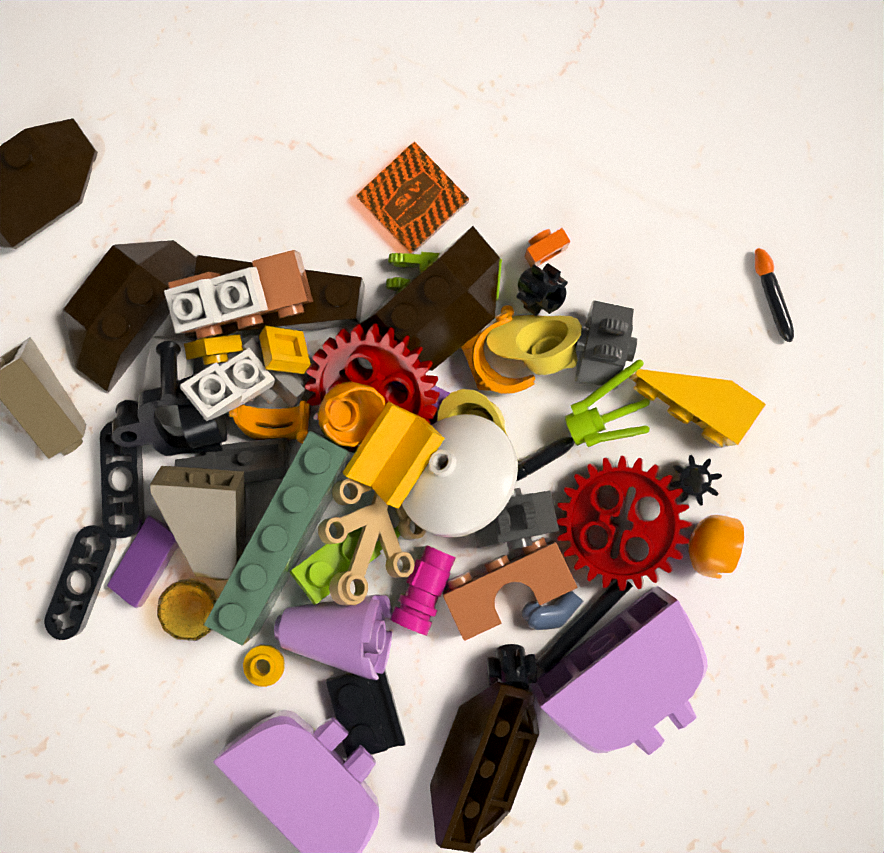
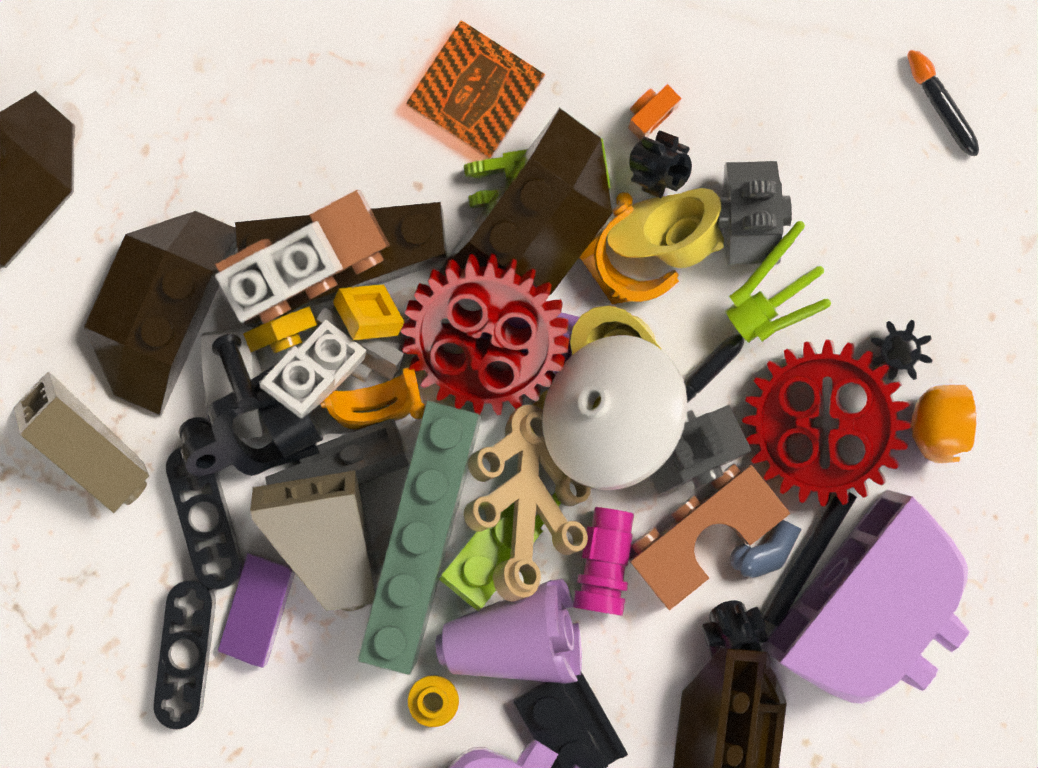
camera: 15 degrees left, 0 degrees up
(185, 608) = (325, 654): clear yellow hair -> none
(349, 412) = (470, 368): light orange hair -> none
(394, 454) = (533, 405): yellow panel -> none
(714, 404) = (900, 253): yellow slope -> none

